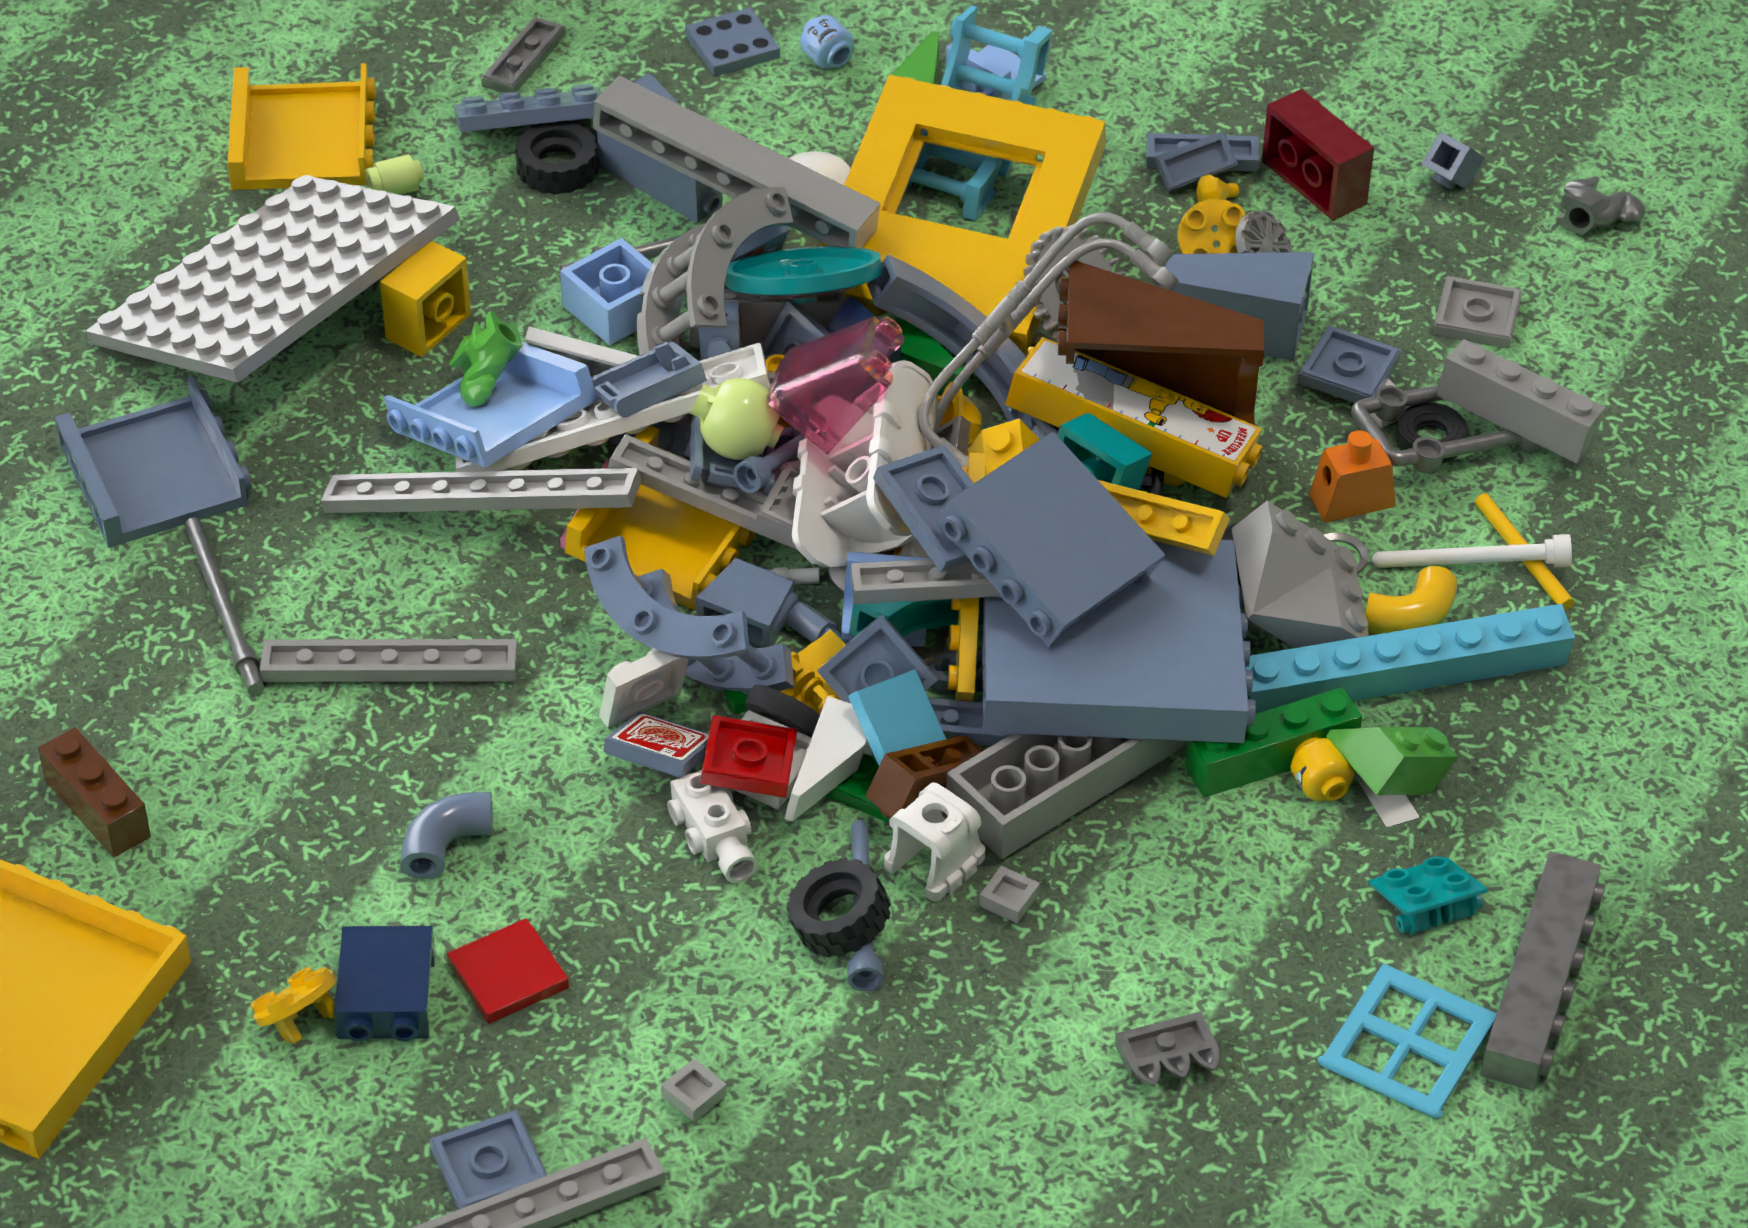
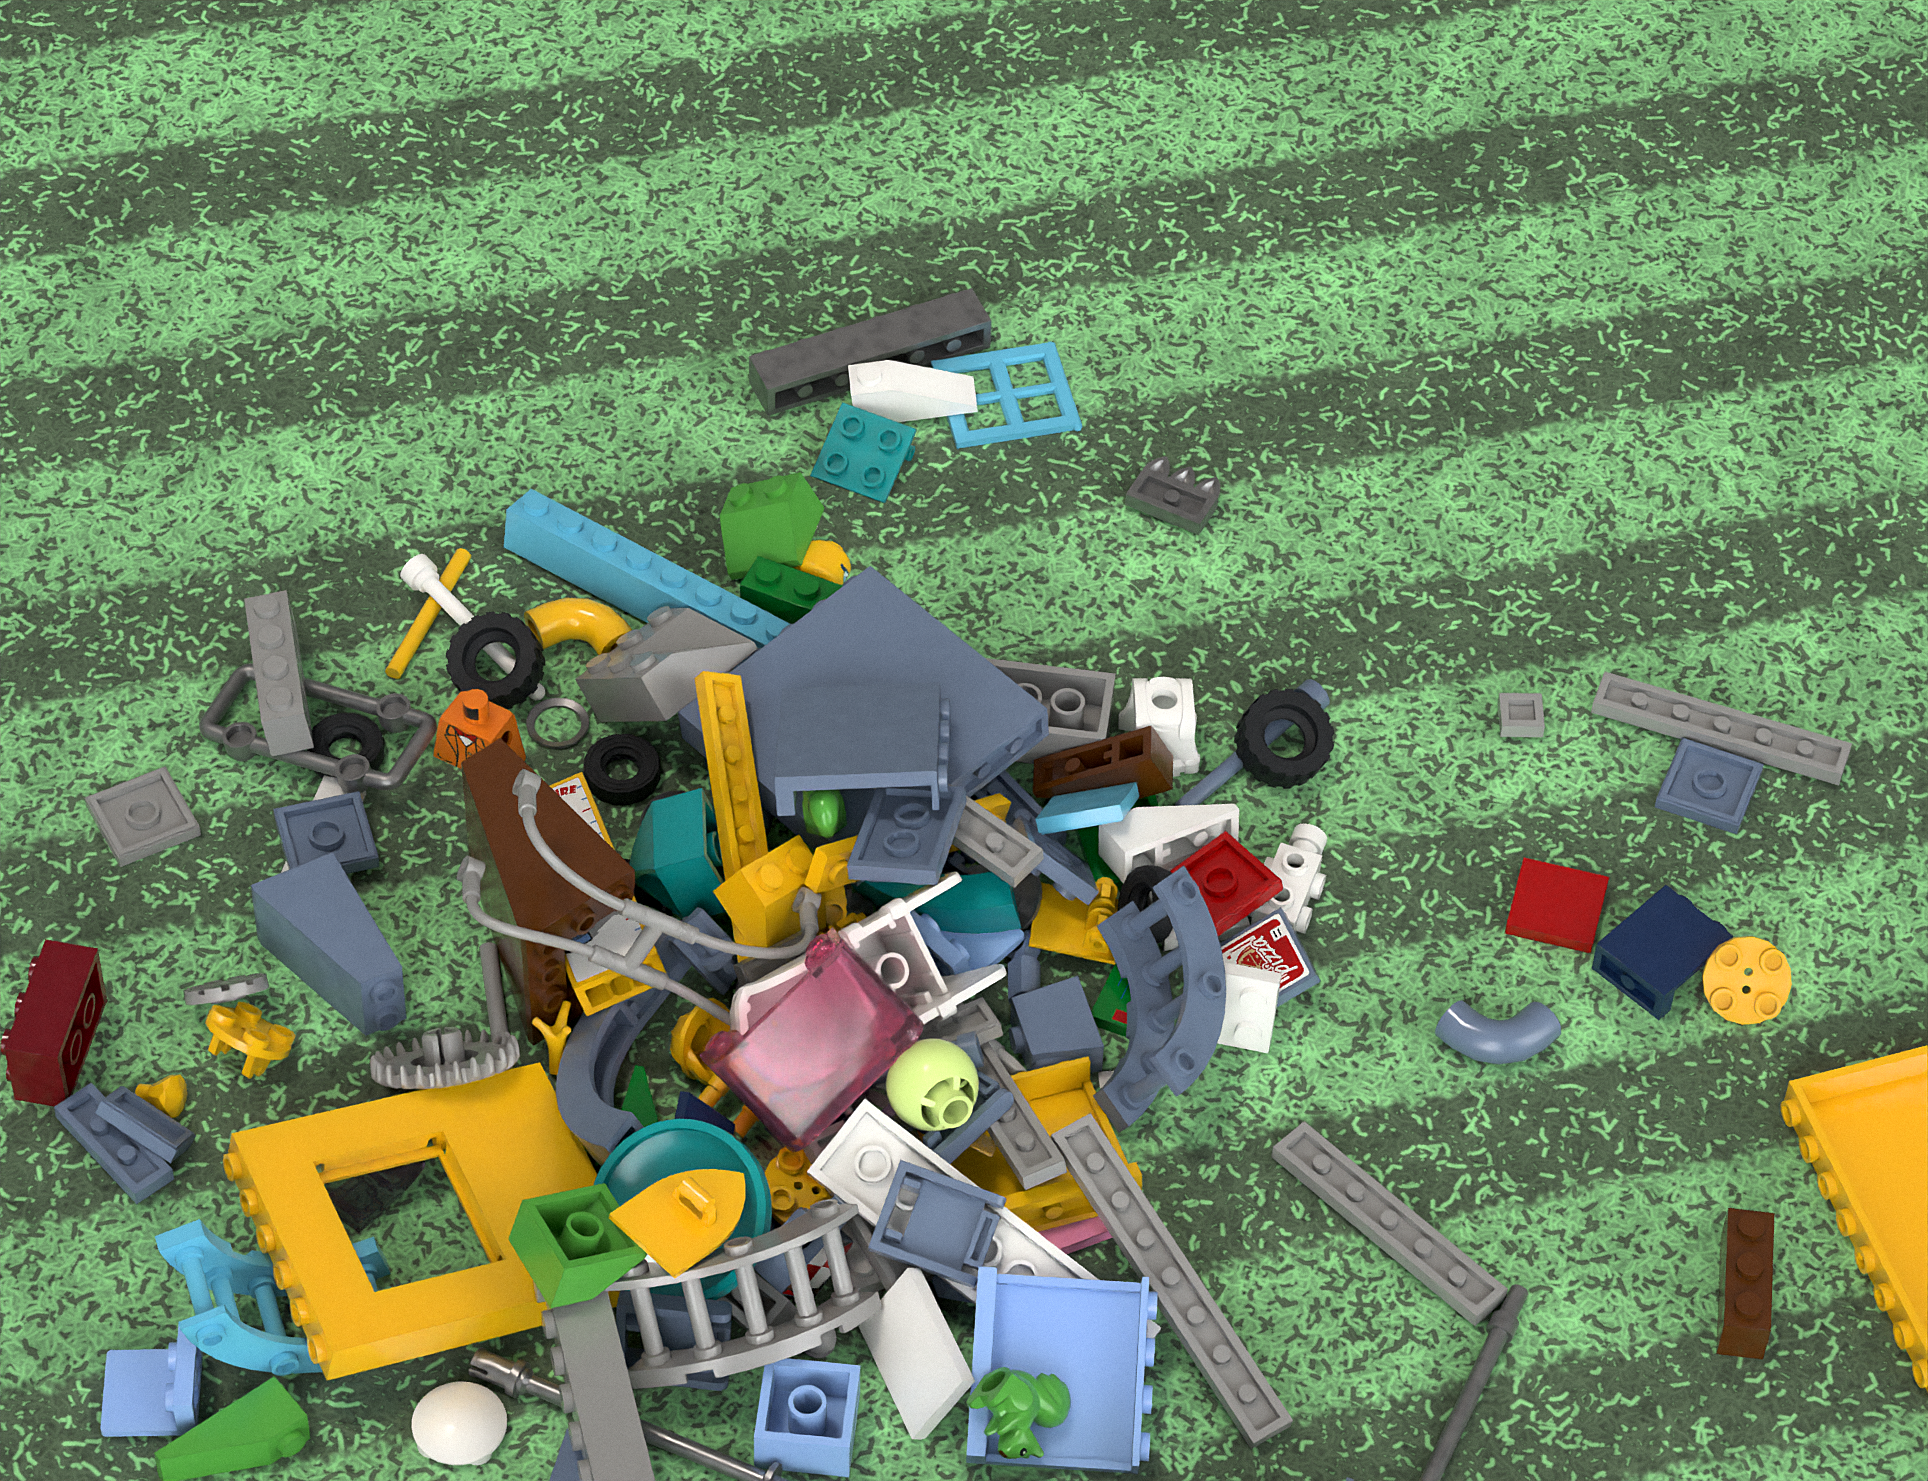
camera: 135 degrees left, 5 degrees up
(775, 223) = (683, 1216): none -> yellow shield
(819, 167) = (573, 1244): none -> bright green slope
(1009, 894) = (1143, 664): light grey plate -> none
(1421, 531) = (490, 629): none -> black tyre
(1464, 952) = (910, 391): none -> white slope

